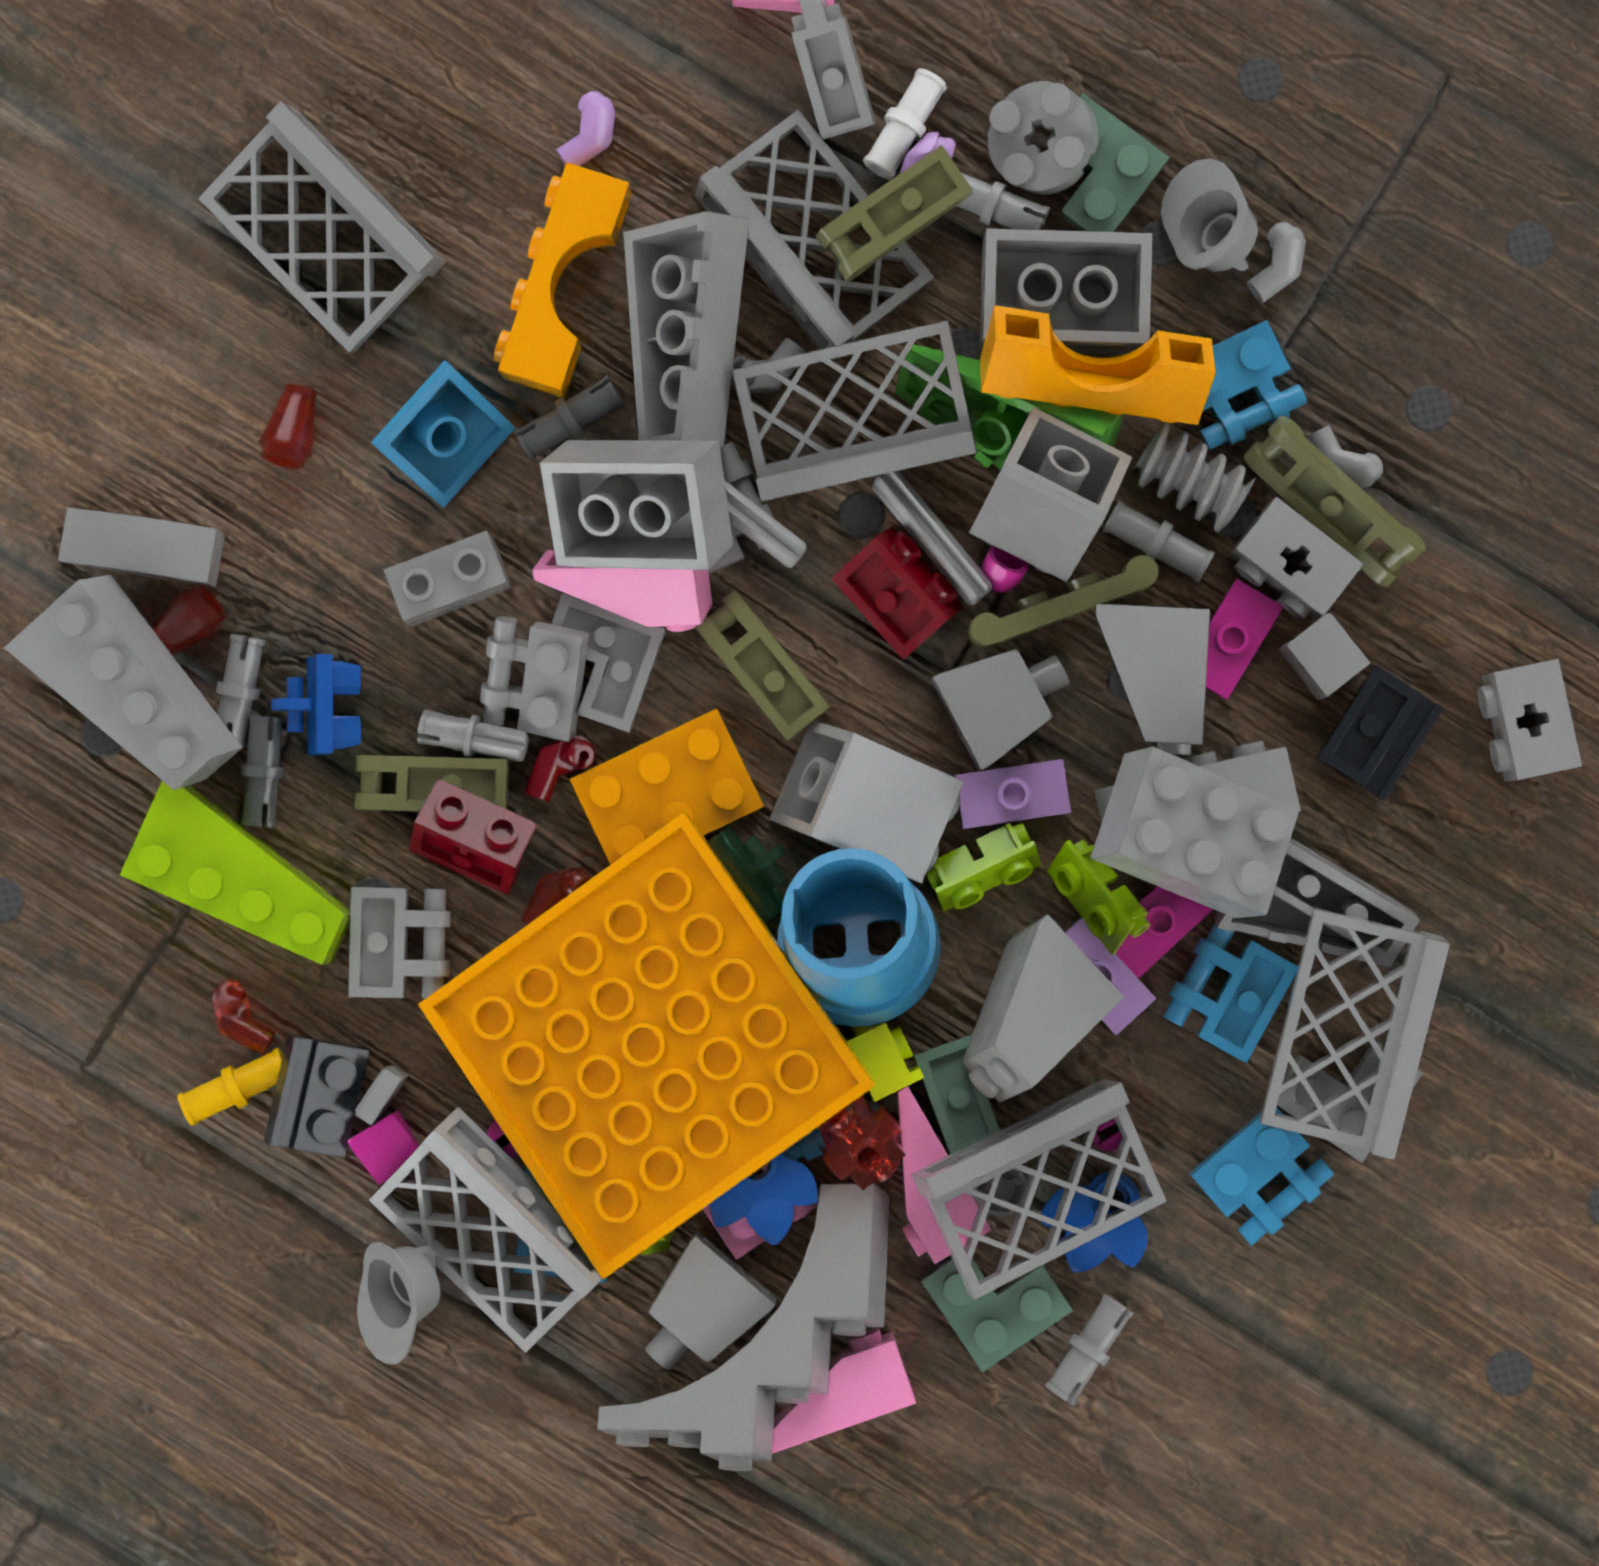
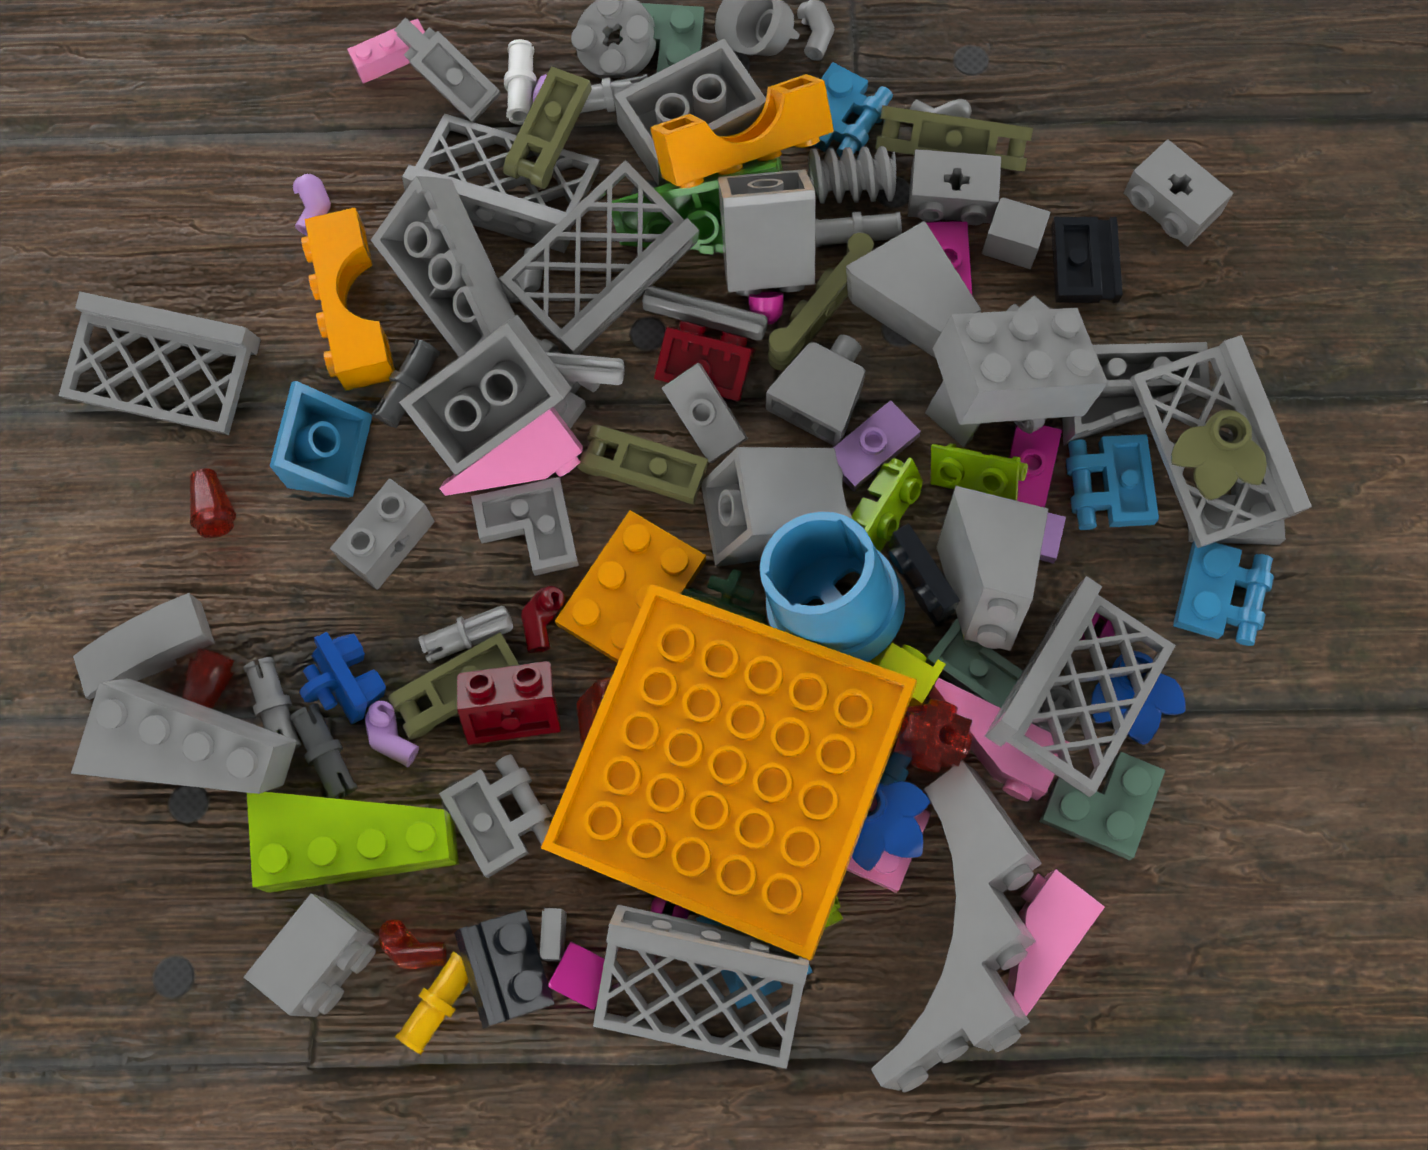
camera: 30 degrees left, 15 degrees down
(137, 977) = (313, 958): none -> light grey brick
(332, 790) = (384, 735): none -> lavender arm
(394, 1295) = (657, 1088): light grey piece -> none
(551, 677) = (499, 559): light grey plate -> none
(705, 1304) = (897, 938): light grey torso -> none
(859, 652) = (704, 413): none -> light grey plate
(961, 994) = (922, 575): none -> black plate
(1089, 1350) = (1197, 791): light grey pin -> none
(1335, 1055) = (1220, 462): none -> olive plate

